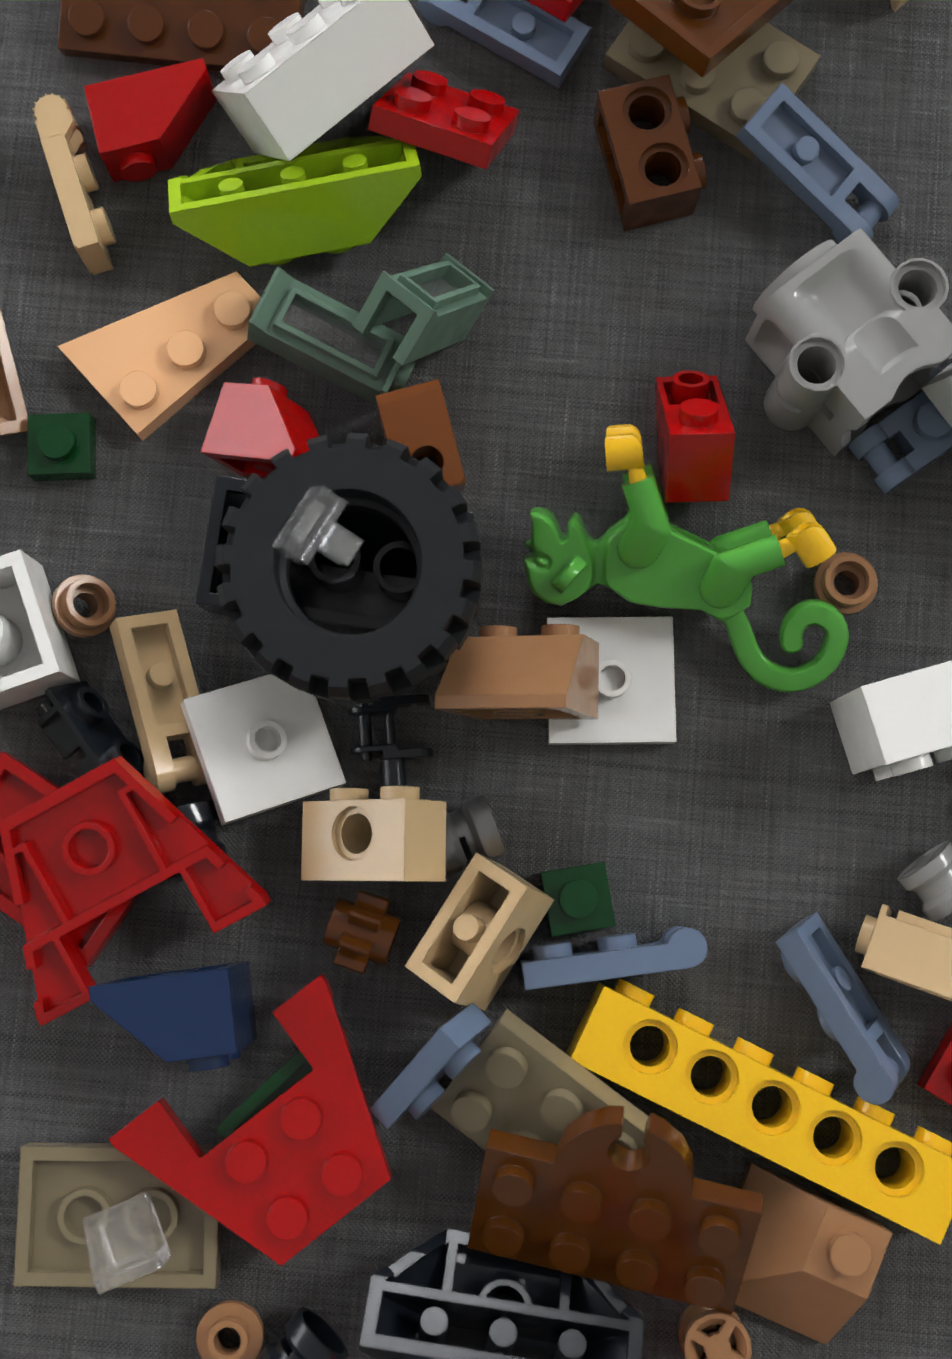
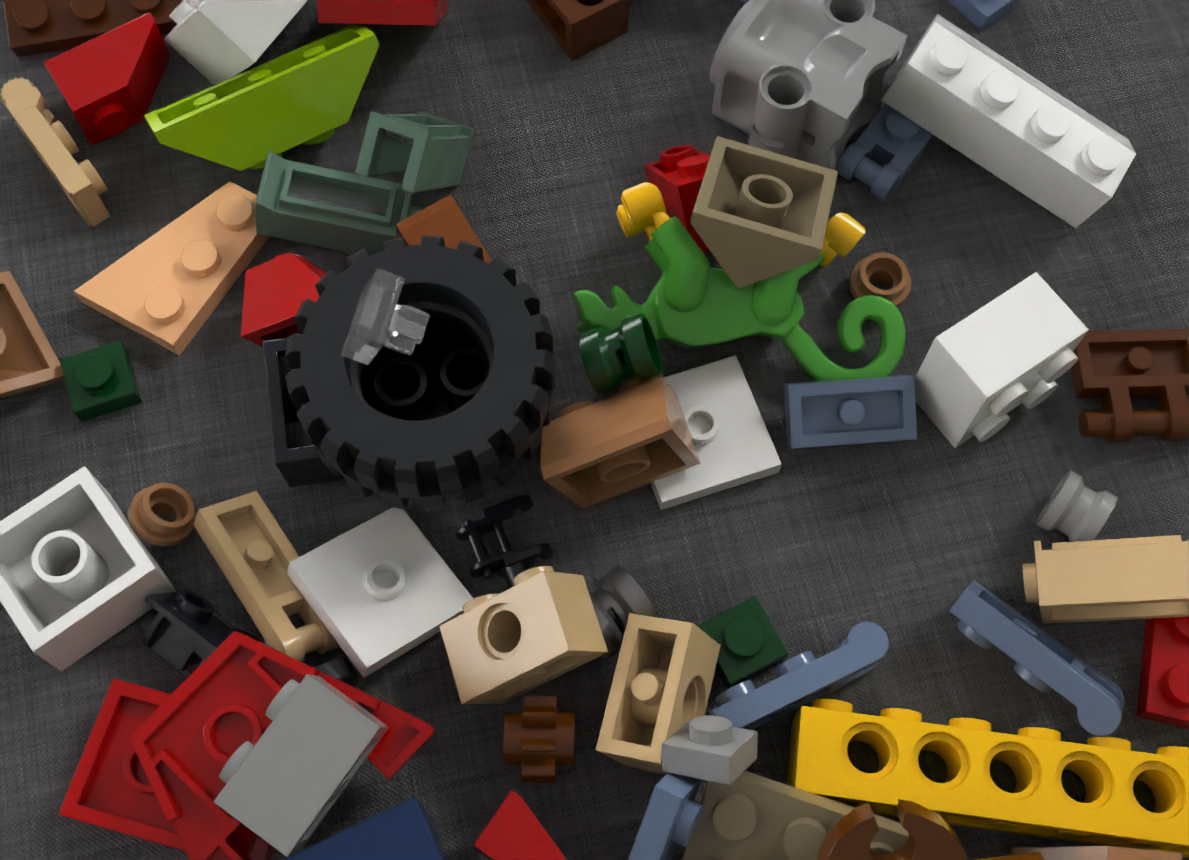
camera: 20 degrees left, 15 degrees down
(139, 902) = (299, 763): none -> light grey brick
(504, 1005) = (710, 750): none -> light grey plate
(552, 597) = (620, 354): none -> dark green wheel
(741, 496) = (762, 210): none -> dark tan slope
(762, 711) = (850, 411): none -> sand blue plate

